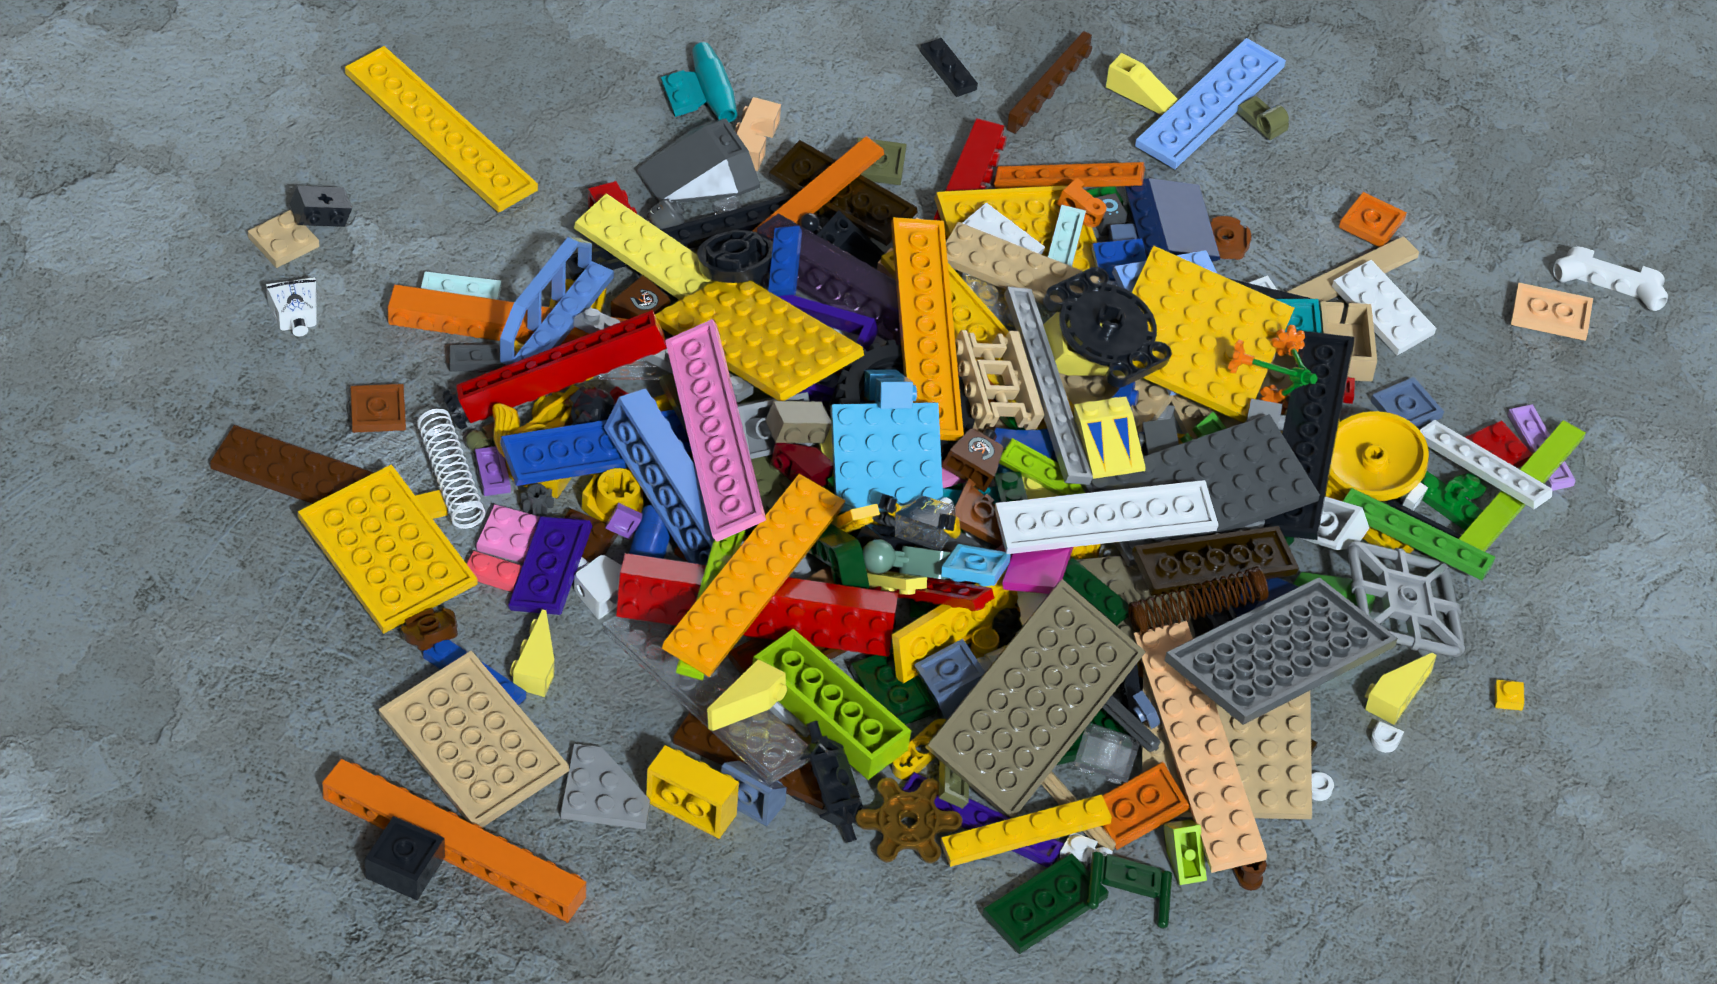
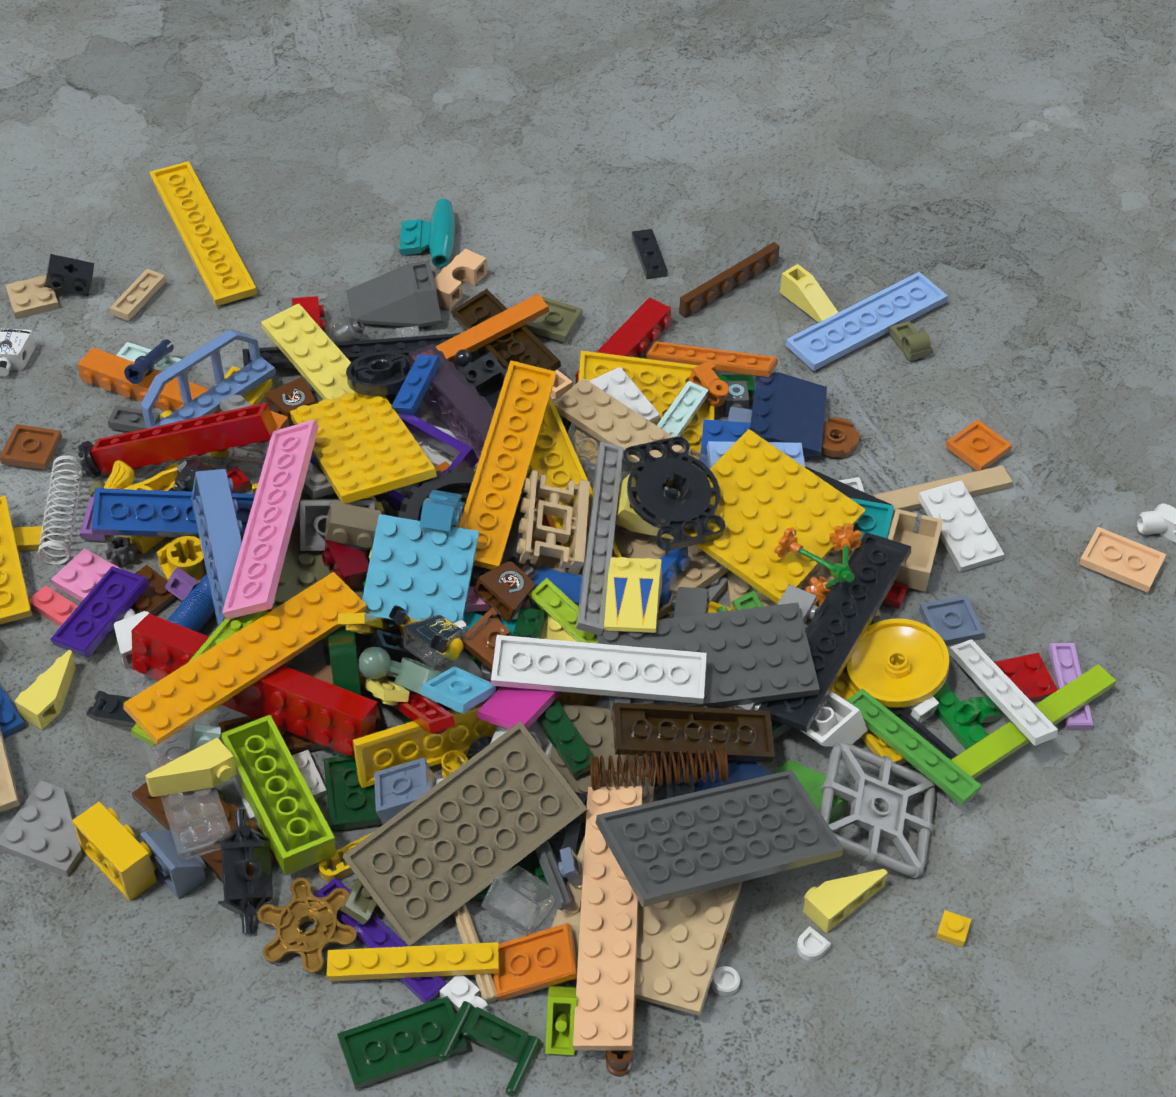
camera: 20 degrees right, 0 degrees up
(405, 215) = (137, 294): none -> tan plate
(469, 292) = (145, 364): none -> dark blue pin
(624, 658) = (113, 710): none -> black plate
(736, 664) = (201, 735): none -> light aqua plate

